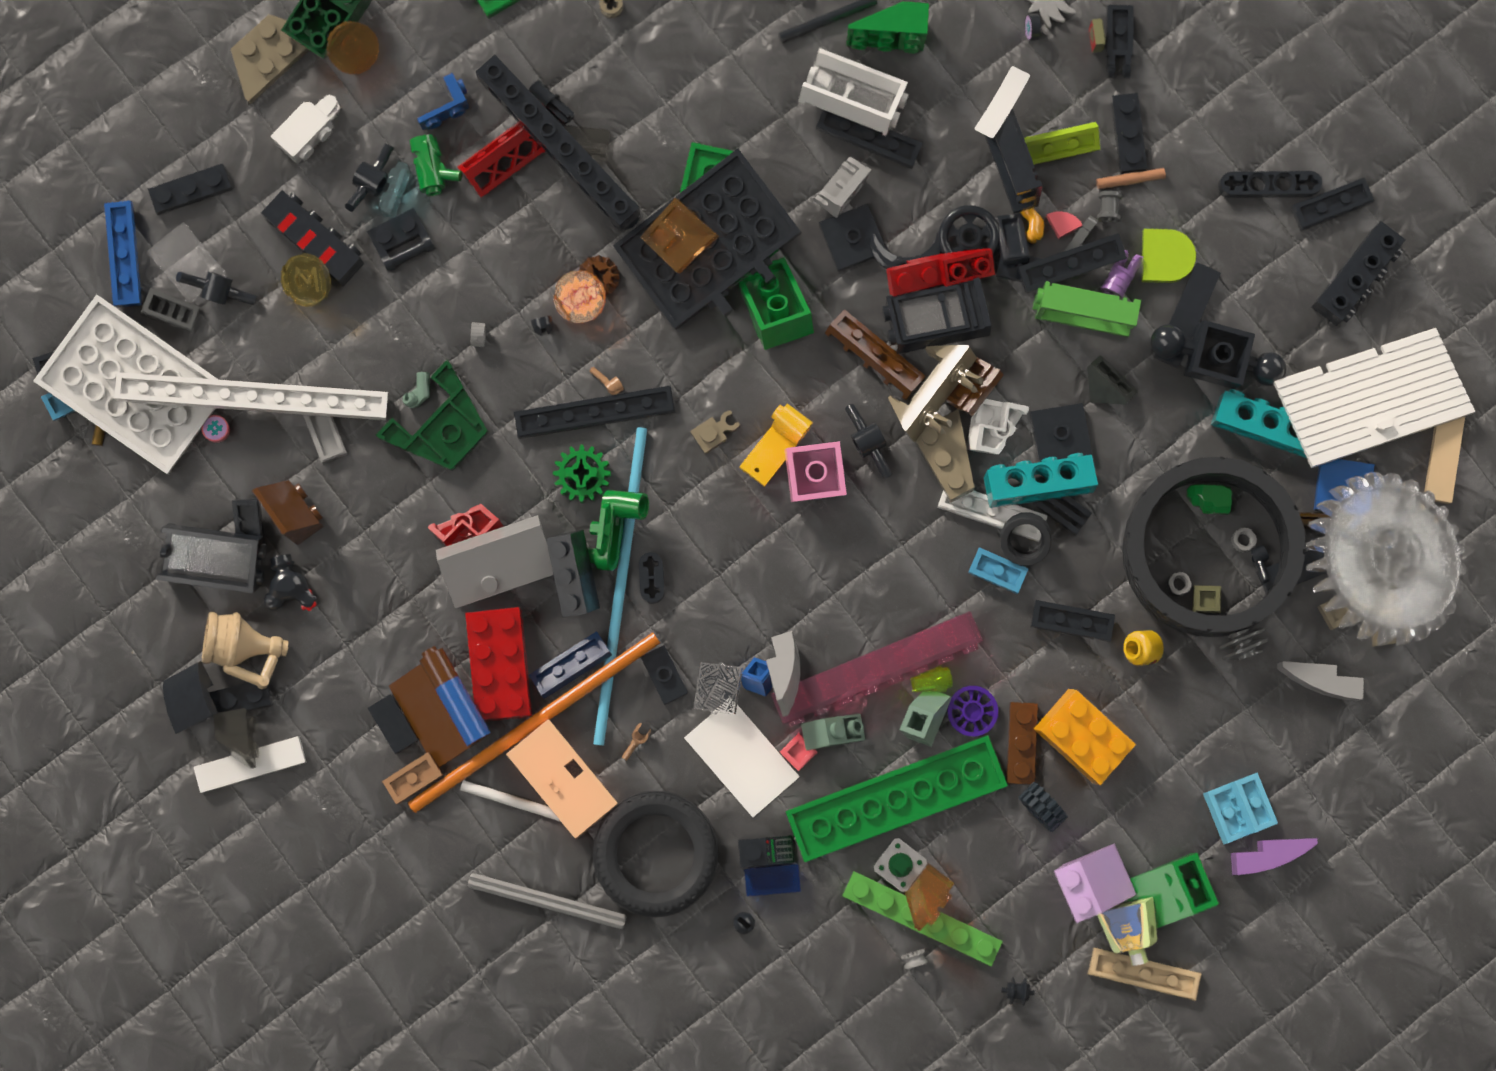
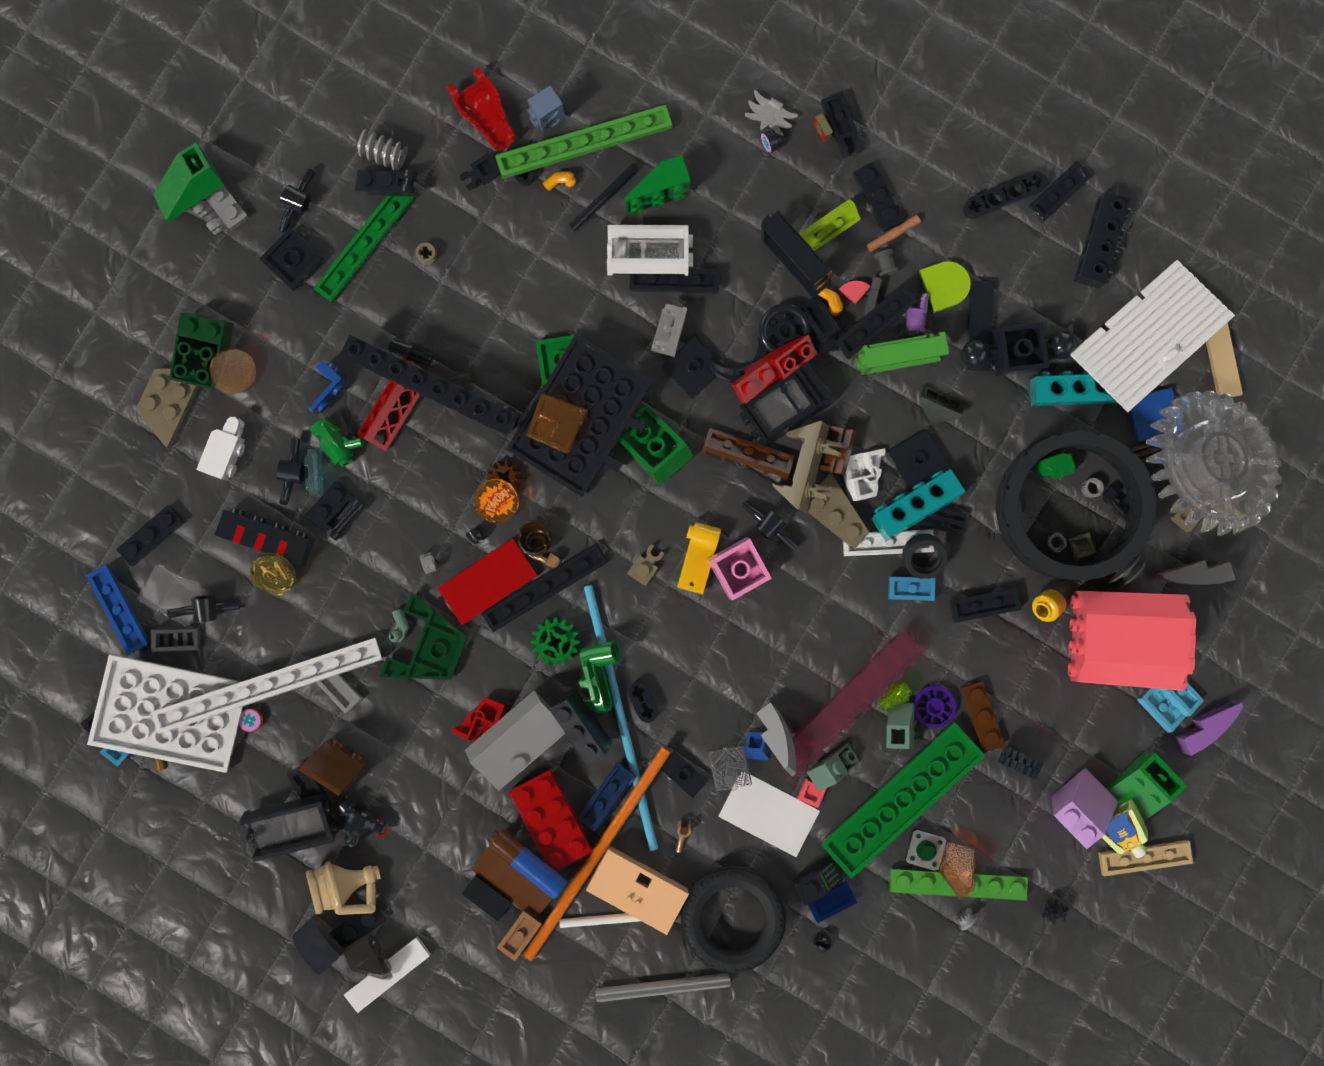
camera: 25 degrees left, 5 degrees up
(534, 381) = (487, 581): none -> red tile
(605, 352) = (535, 538): none -> dark brown hair
(1002, 102) = (773, 213): white sticker -> none
(1084, 736) = (1031, 694): light orange brick -> none
(1214, 713) = (1132, 639): none -> coral windscreen

